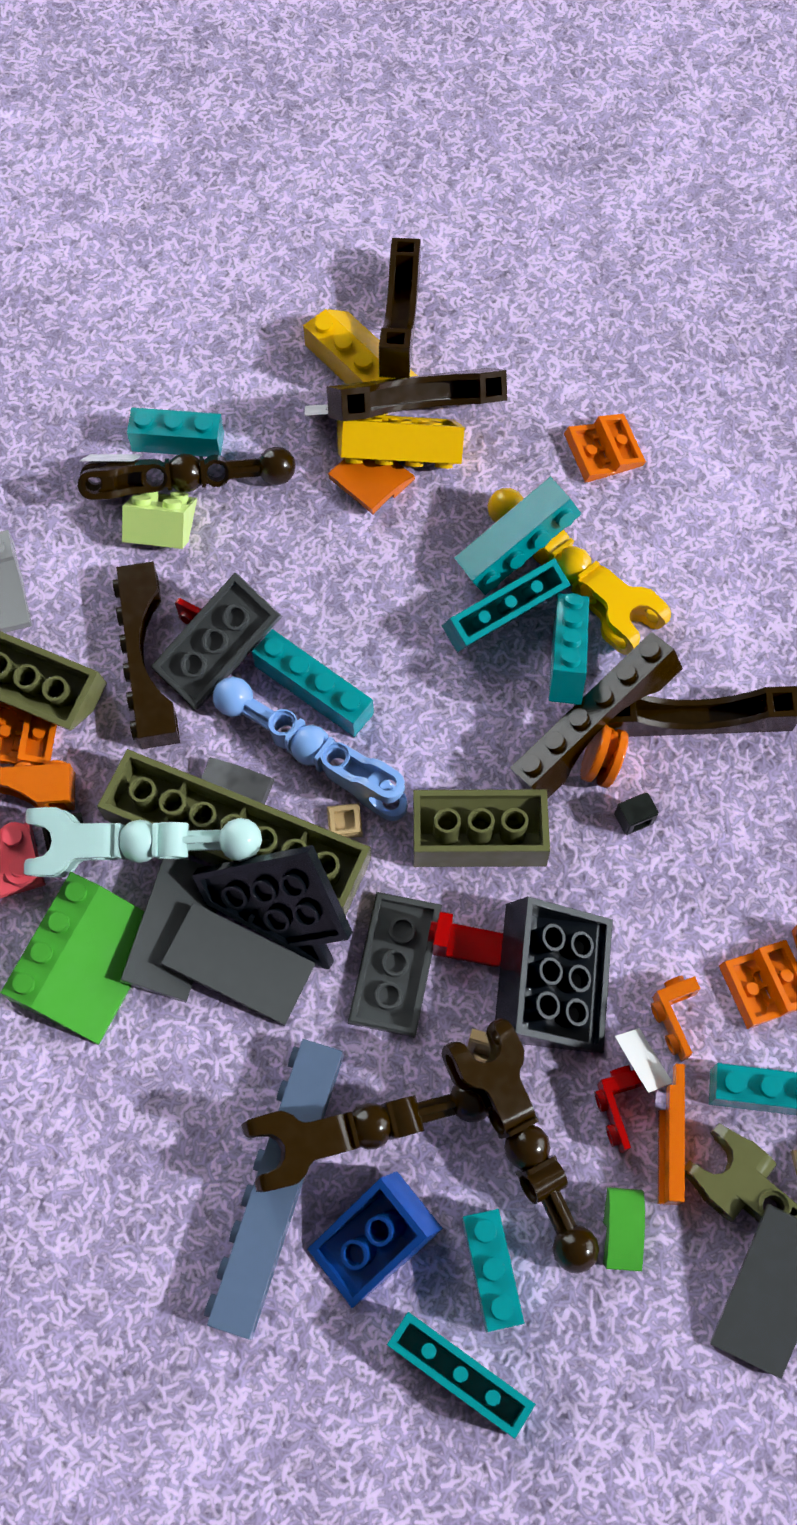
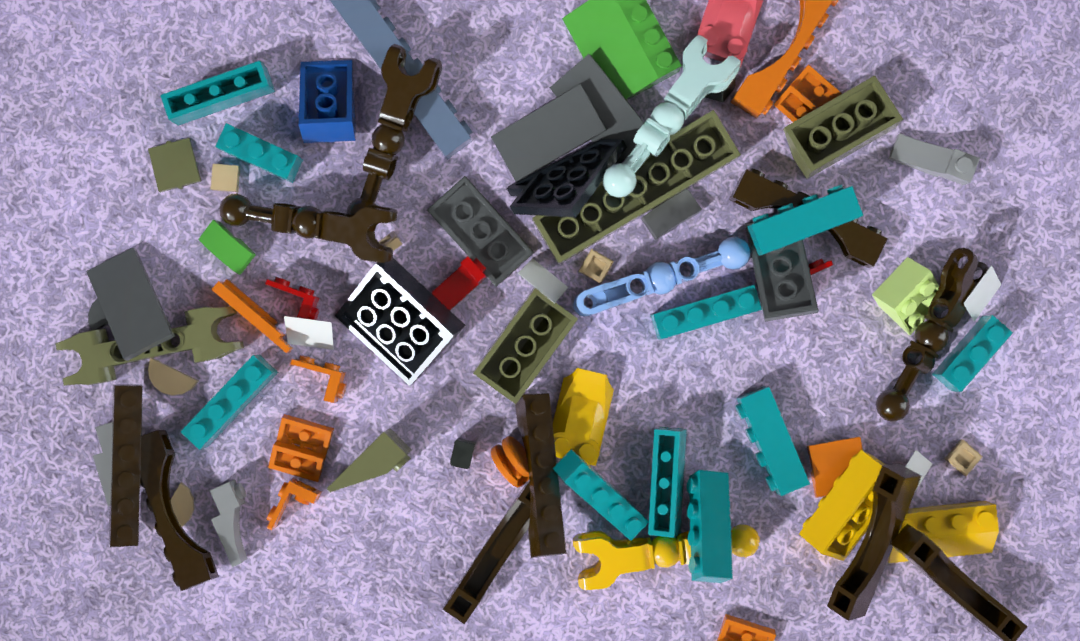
camera: 130 degrees right, 20 degrees up
(153, 645) = (806, 220): none -> teal brick
(279, 384) = (963, 457): none -> tan tile
(391, 544) = (772, 440): none -> teal brick
(399, 856) = (543, 280): none -> white sticker
(504, 729) = (582, 414): none -> yellow slope
(549, 1295) = (225, 177): none -> tan tile
(580, 1371) = (174, 165): none -> olive piece
(719, 889) = (378, 459): none -> olive slope

